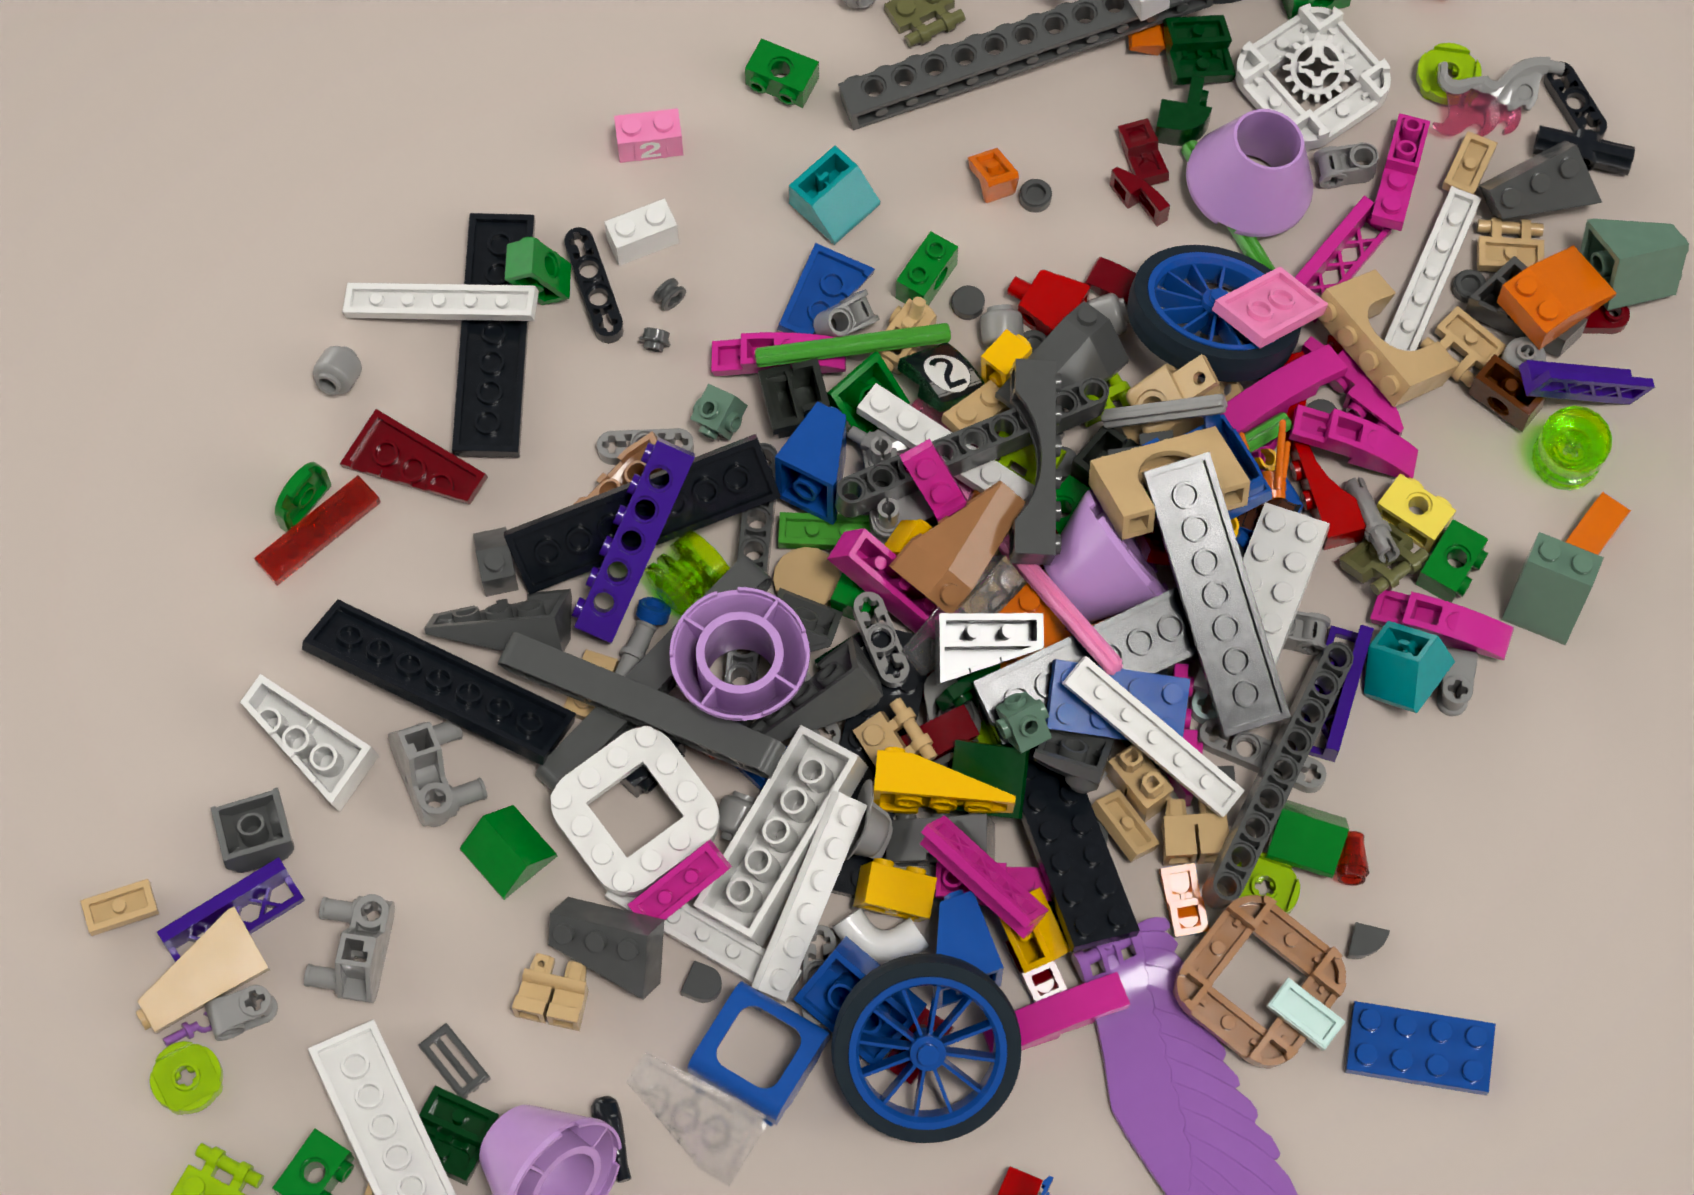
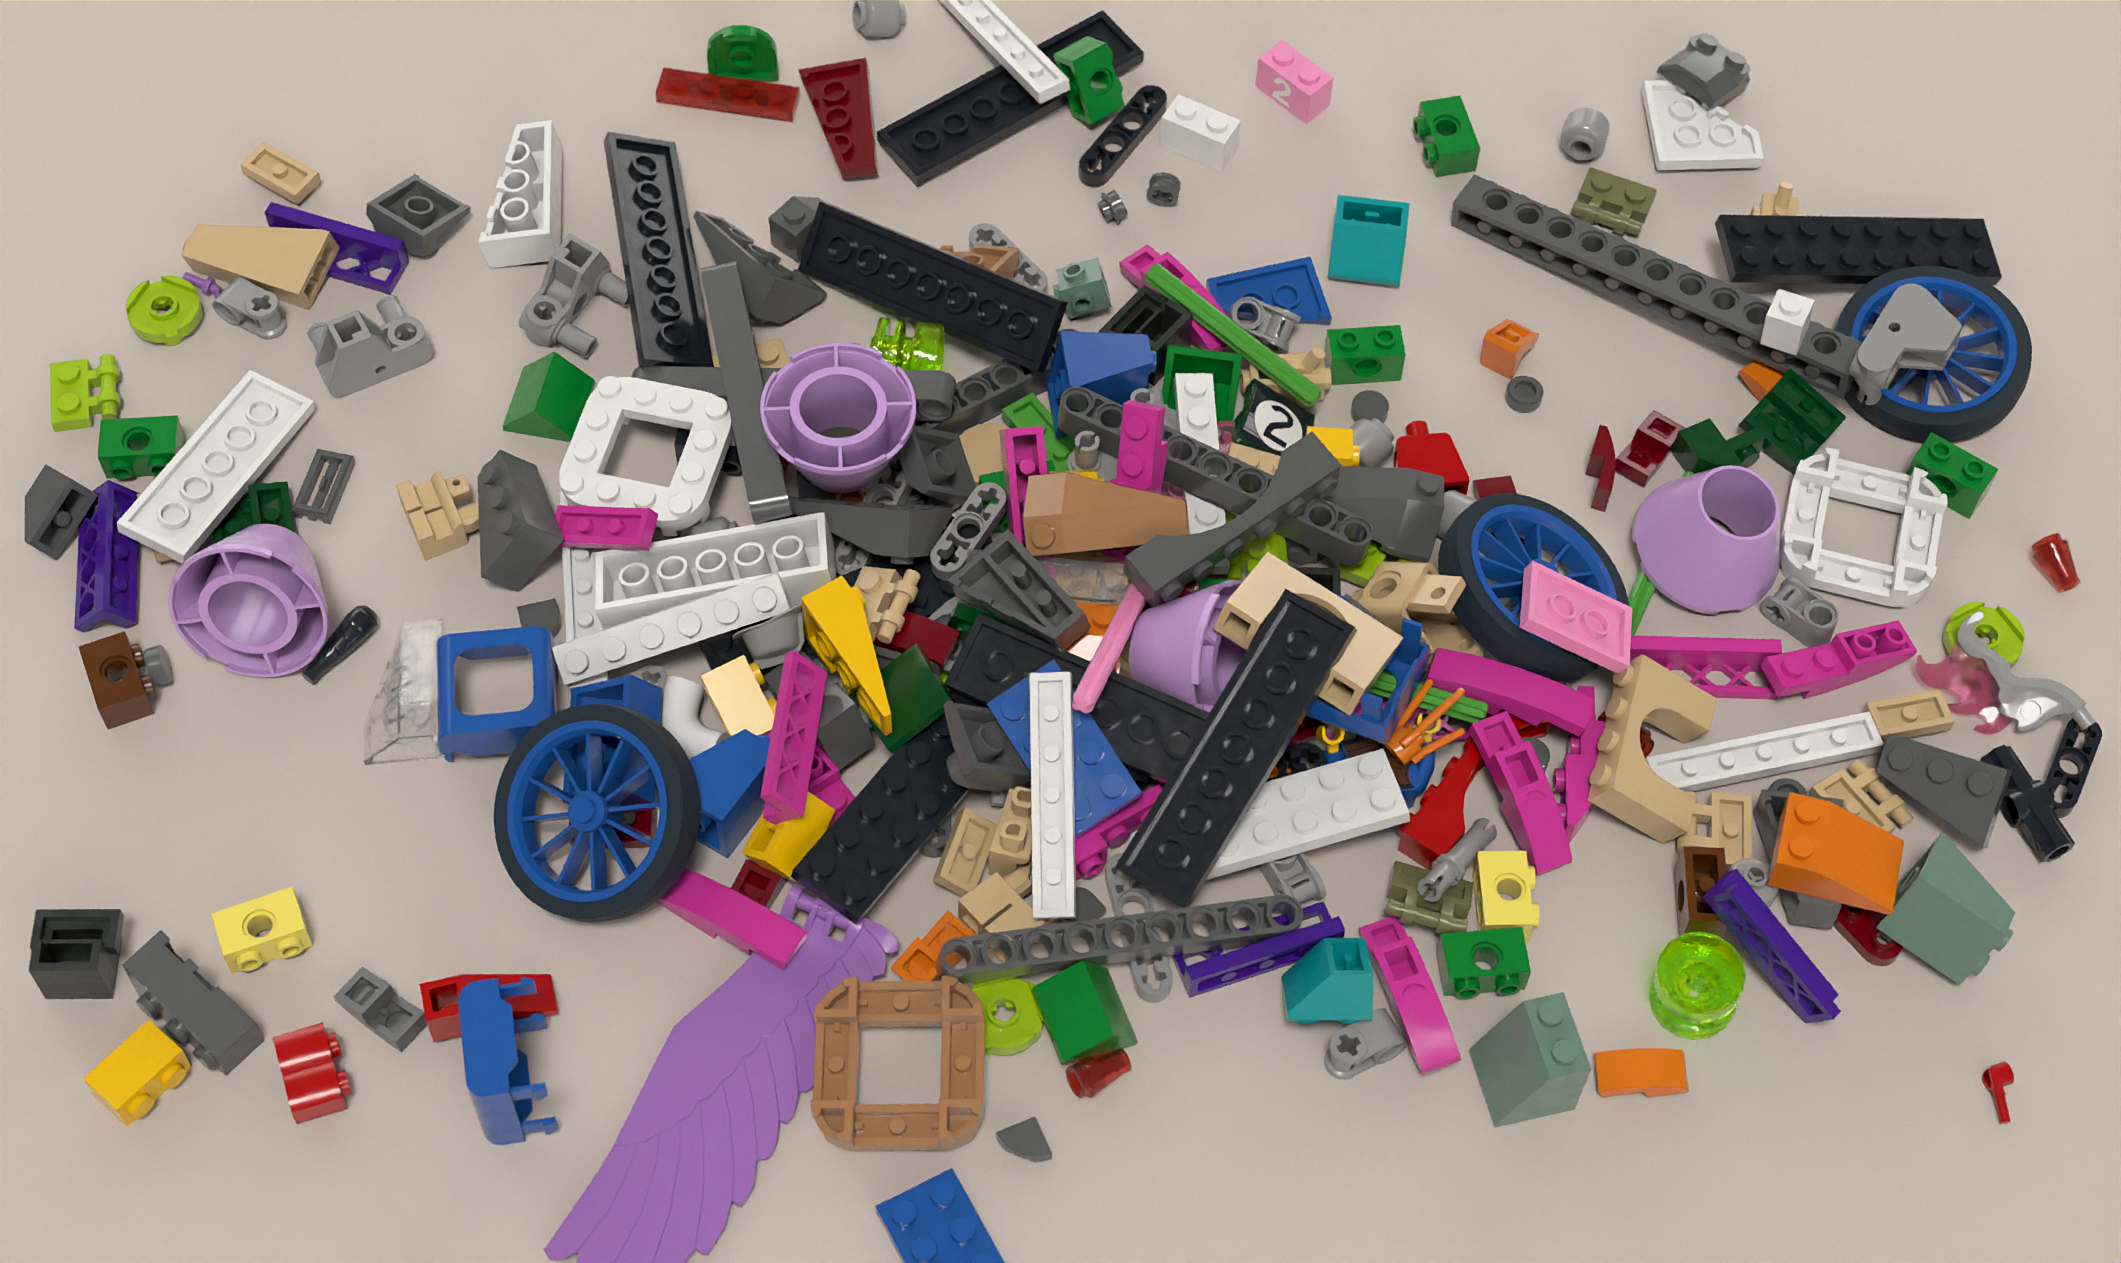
camera: 50 degrees right, 10 degrees down
(605, 622) = (980, 261): dark purple brick -> none
(1023, 721) = (971, 673): sand green brick -> none
(1164, 411) = (1383, 591): light grey axle -> none
(1305, 1014) = (896, 1125): light aqua tile -> none
(1317, 52) = (1880, 511): white gear -> none

